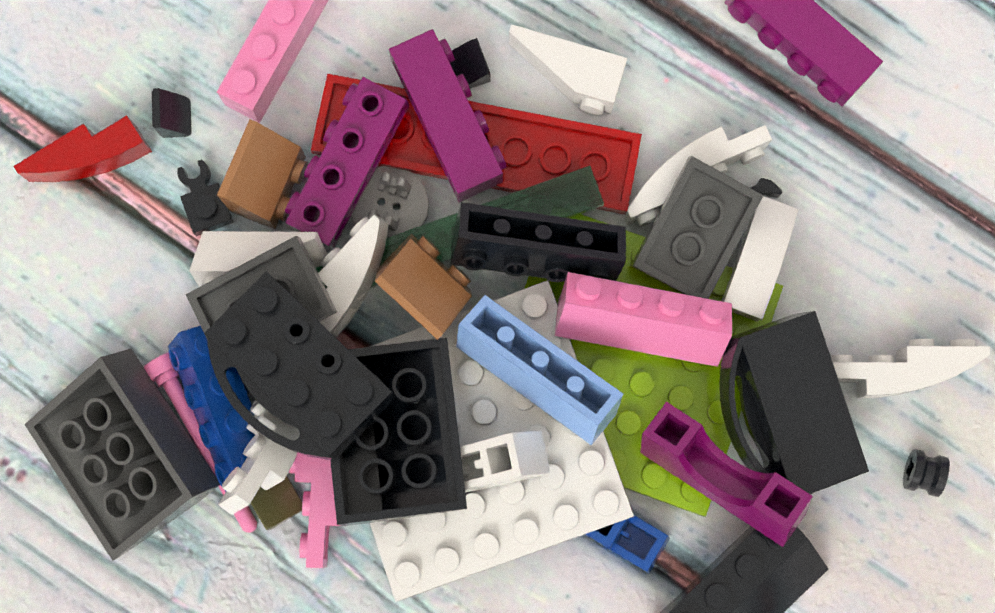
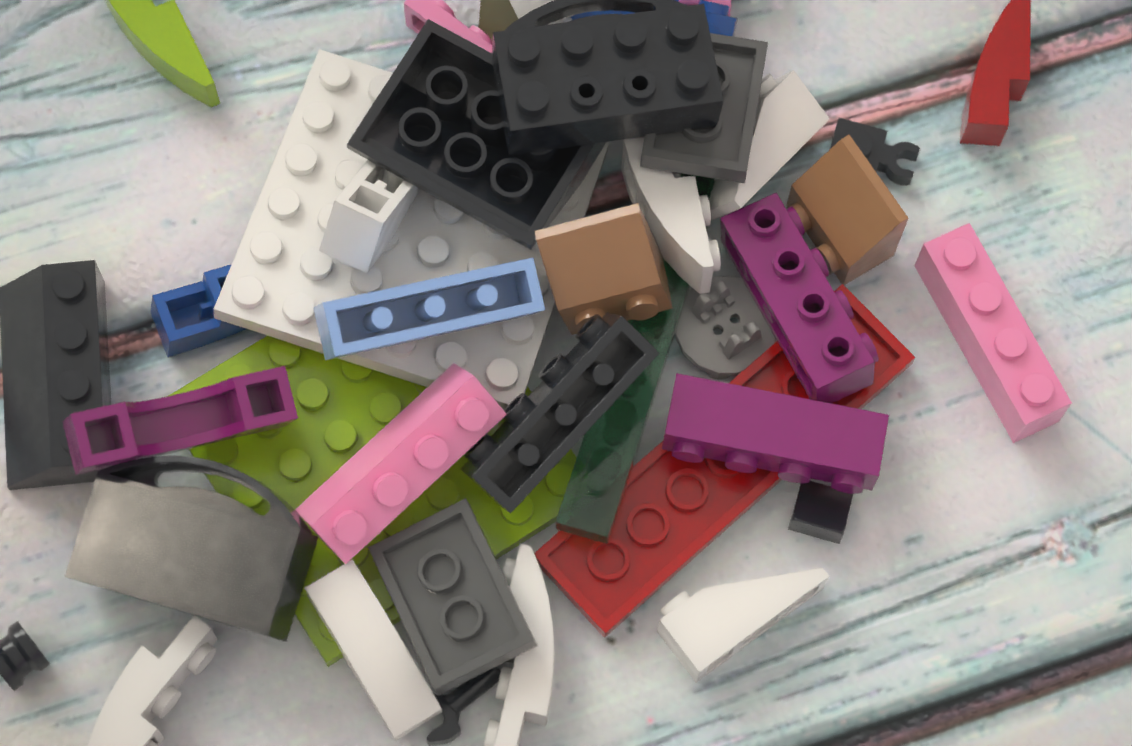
camera: 125 degrees right, 10 degrees down
(171, 114) = (984, 179): black slope -> none

